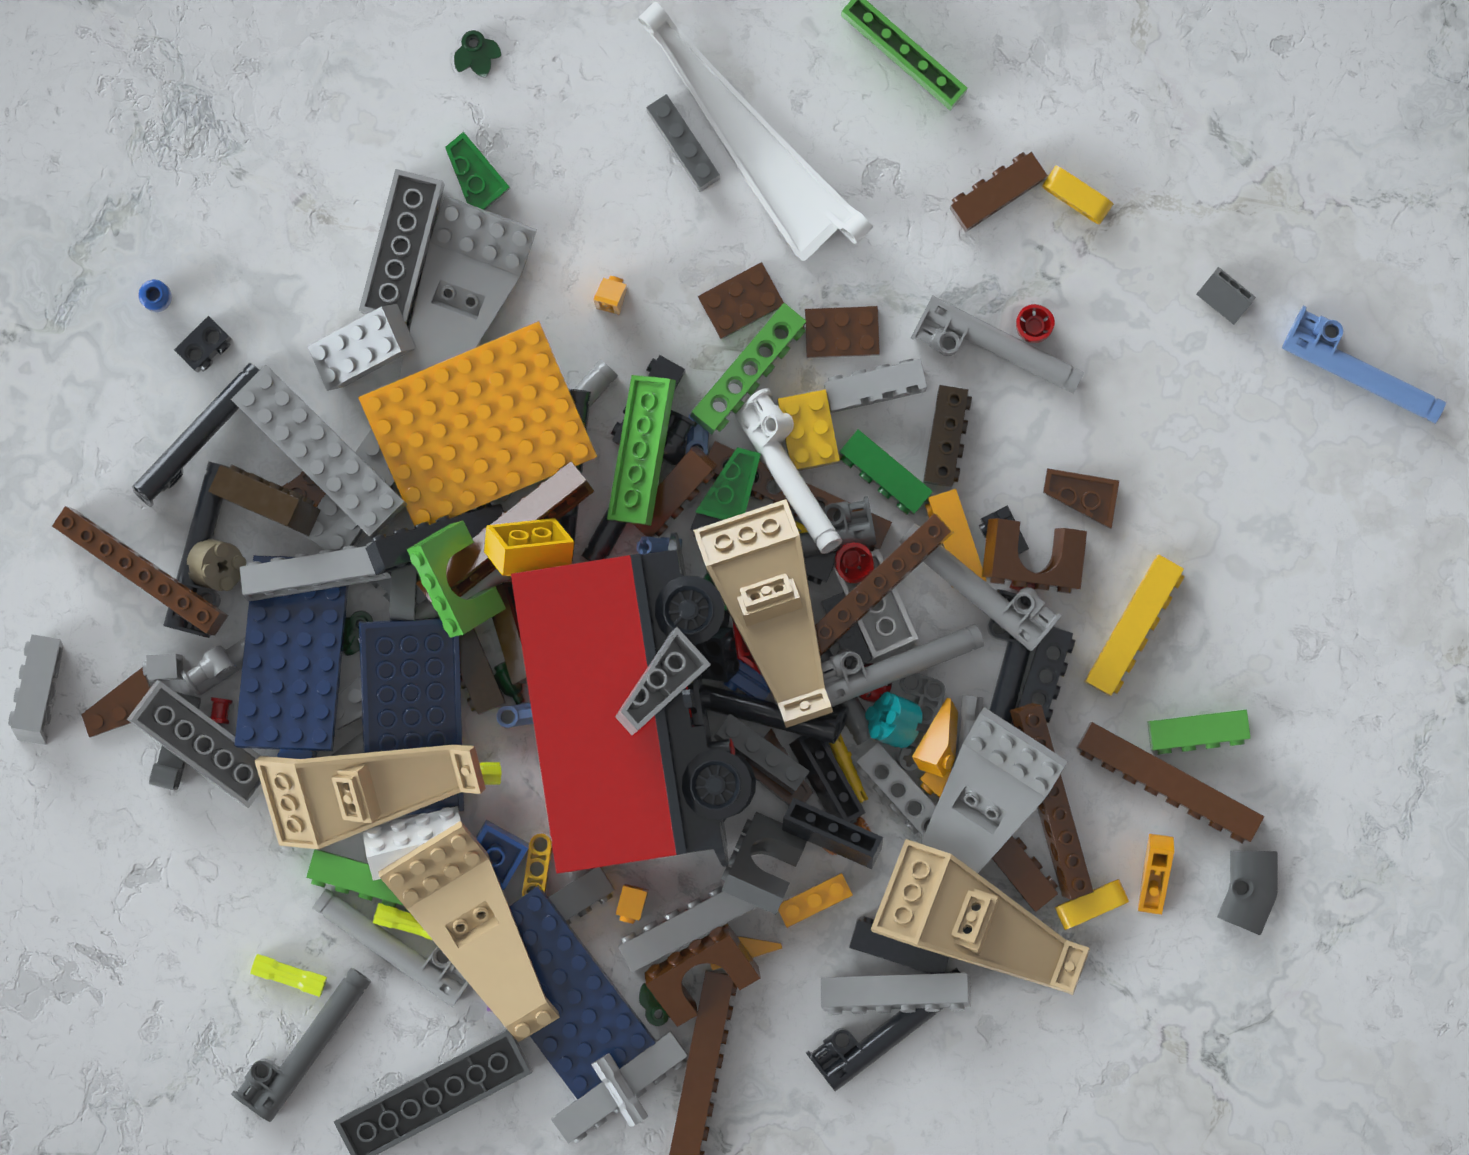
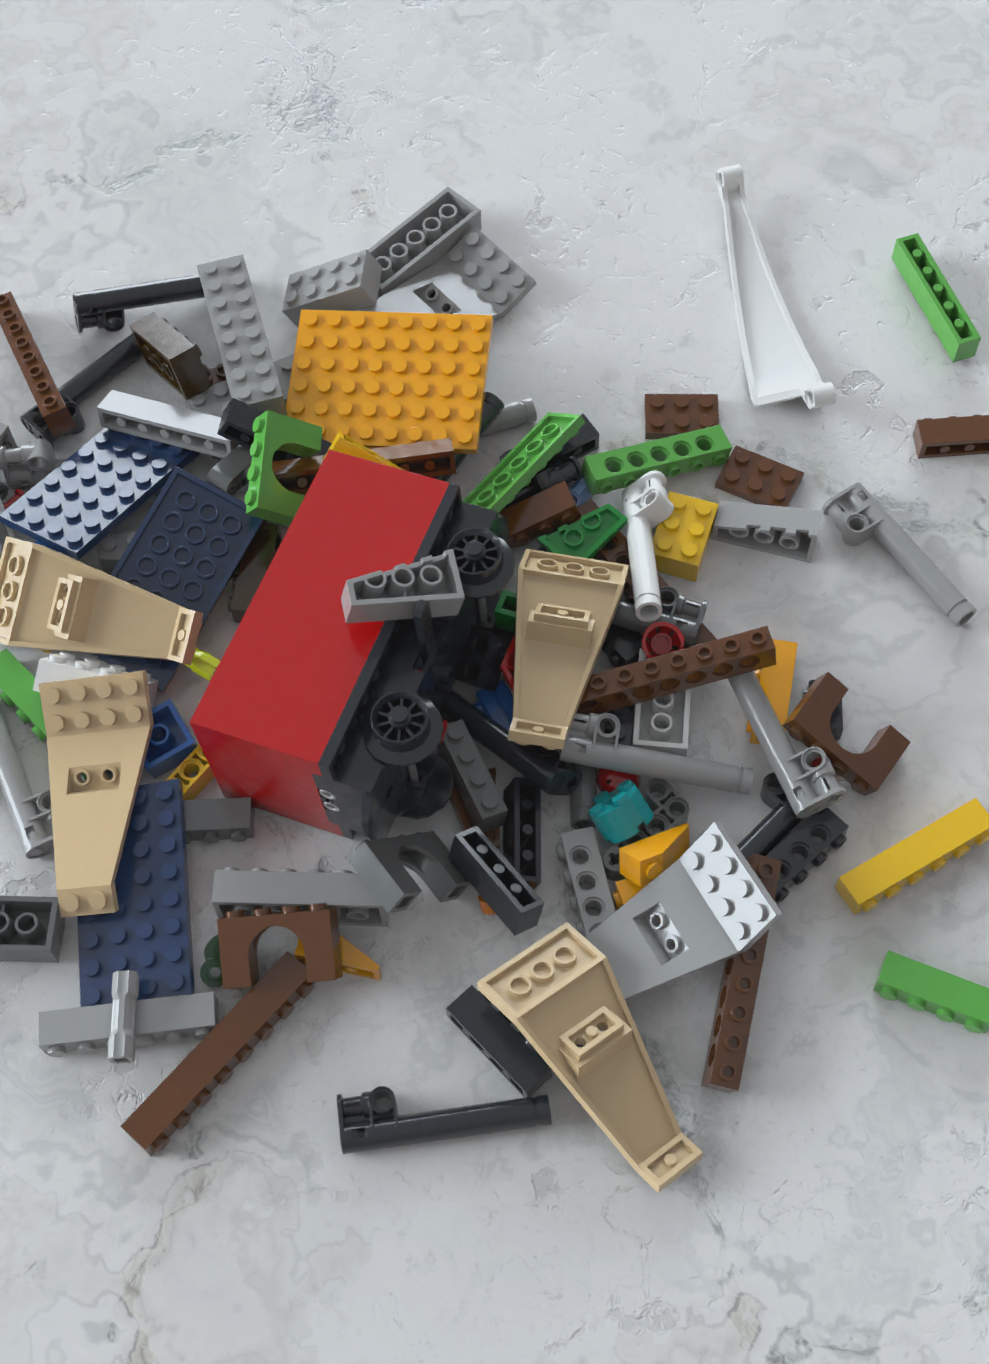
camera: 30 degrees right, 25 degrees down
(155, 295) = (196, 194): blue head -> none
(198, 339) = (208, 243): black brick -> none
(215, 564) = (89, 376): dark tan brick -> none
(398, 919) = (32, 746): neon yellow axle -> none
(475, 174) = (512, 228): green wing -> none
(476, 57) = (566, 156): dark green plate -> none
(610, 295) = (566, 352): light orange slope -> none
(631, 903) = (257, 840): light orange brick -> none
(683, 143) = (701, 281): dark grey brick -> none
(814, 900) = (439, 945): light orange brick -> none
(845, 762) = (549, 832): yellow pin -> none
(885, 472) = (731, 594): green brick -> none
(896, 992) = (468, 1079): light grey brick -> none
(946, 436) = (812, 600): dark brown brick -> none
(1025, 873) = (672, 1034): reddish brown brick -> none
(1034, 325) = (946, 556): red helmet -> none
(1084, 493) = (923, 714): reddish brown wing -> none
(1092, 905) = (729, 1109): yellow beam -> none
(1156, 873) = (816, 1116): light orange slope -> none
(1170, 782) = (881, 1031): reddish brown brick -> none
(1260, 874) = (935, 1180): dark grey panel -> none

